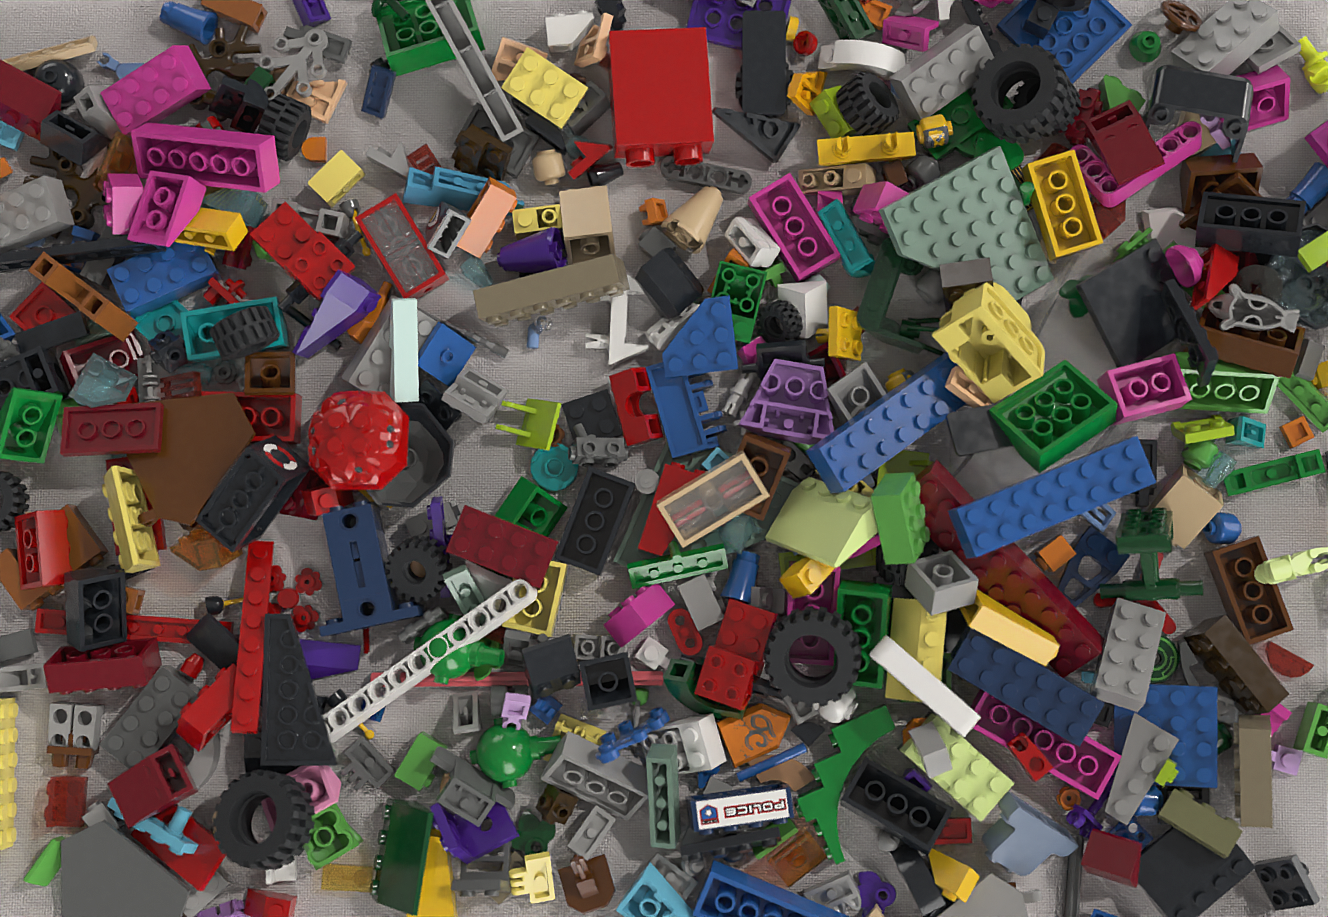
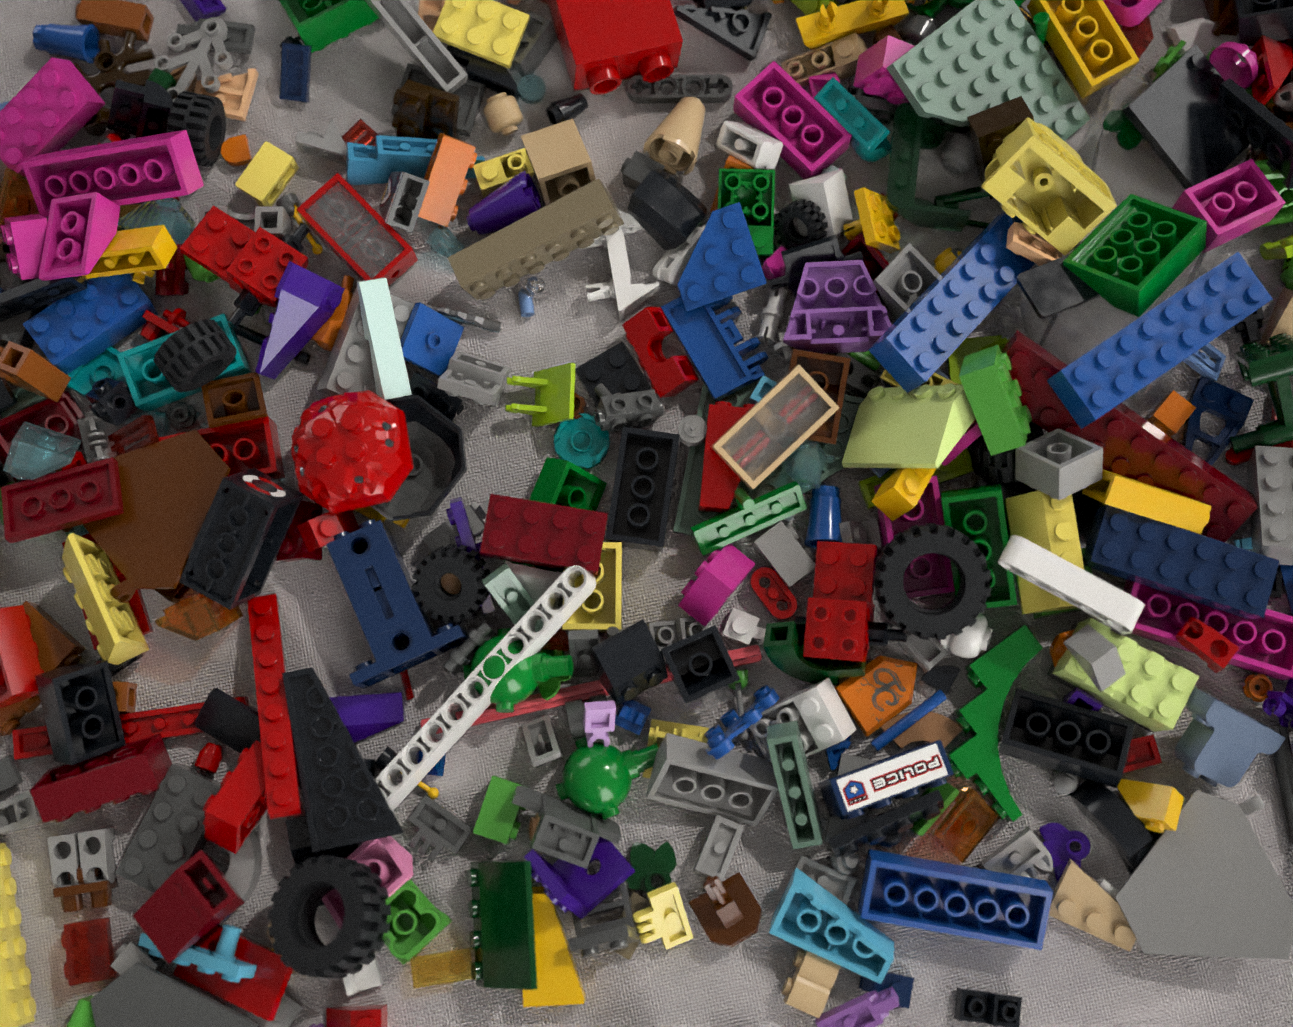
camera: 15 degrees left, 5 degrees down
(216, 605) = (225, 681): black hinge -> none
(289, 597) = (307, 655): red plant -> none
(556, 805) = (670, 825): dark brown brick -> none
(593, 151) = (551, 87): red slope -> none
(655, 210) = (634, 138): orange tile -> none
(774, 272) = (782, 177): bright green tile -> none

